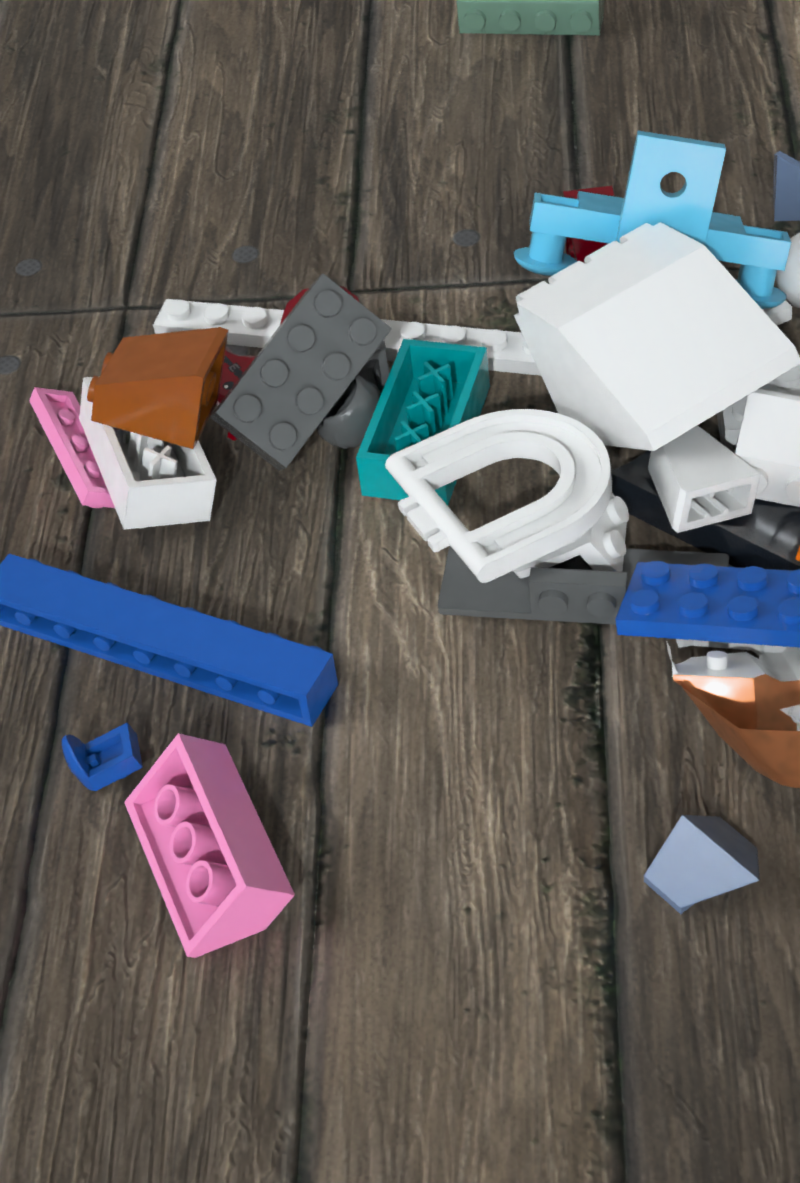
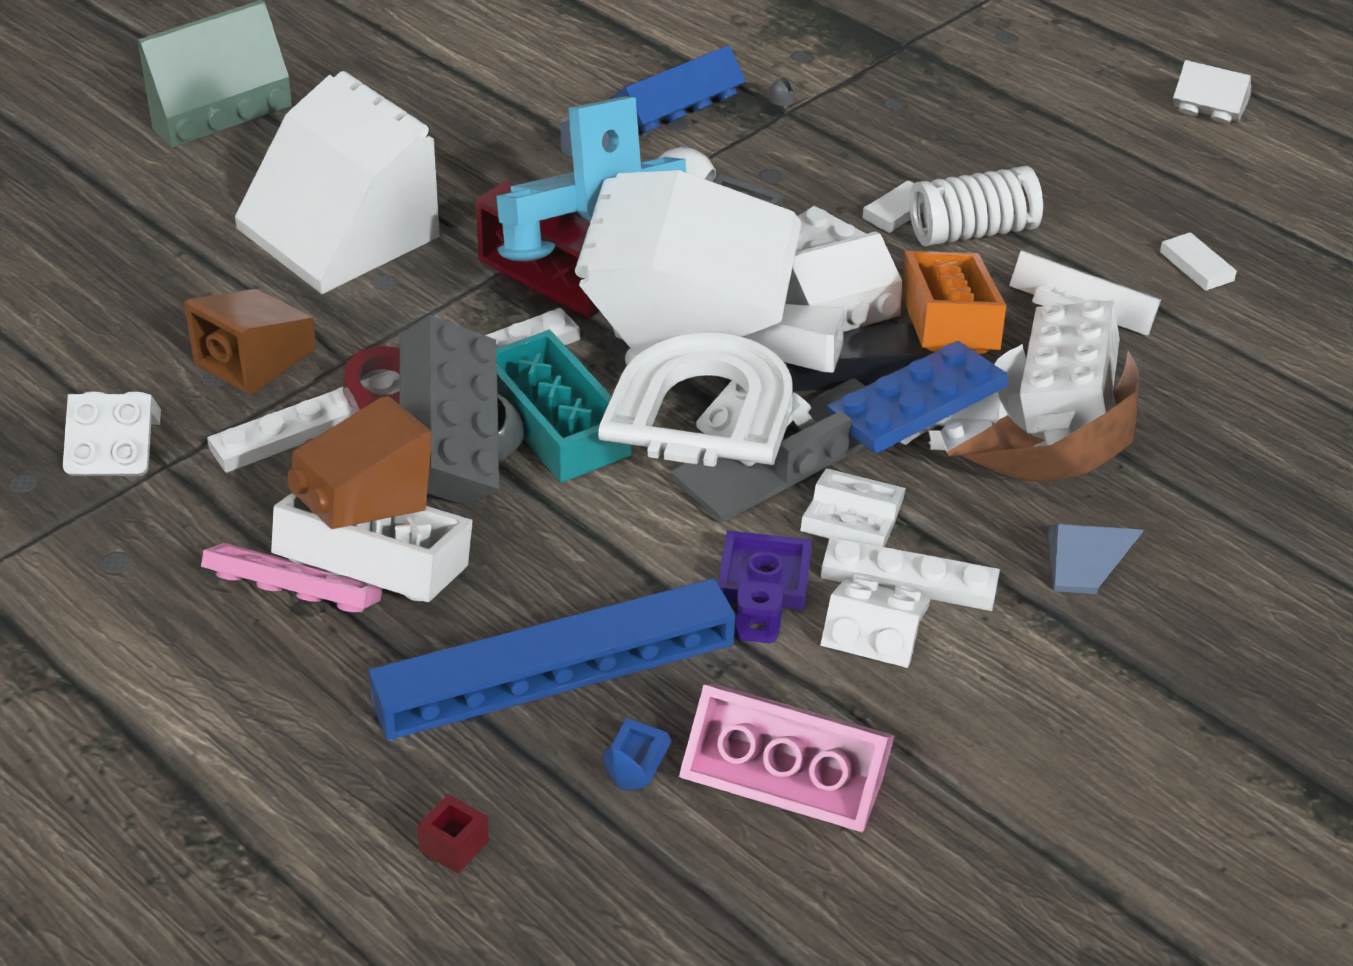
camera: 55 degrees left, 5 degrees down
(107, 254) = (109, 433): none -> white bracket
(288, 226) = (247, 337): none -> dark orange slope
(375, 695) = (761, 593): none -> dark purple plate
(435, 775) = (874, 619): none -> white bracket
(493, 129) = (343, 185): none -> white windscreen
(532, 772) = (935, 576): none -> white plate
(561, 678) = (853, 508): none -> white slope

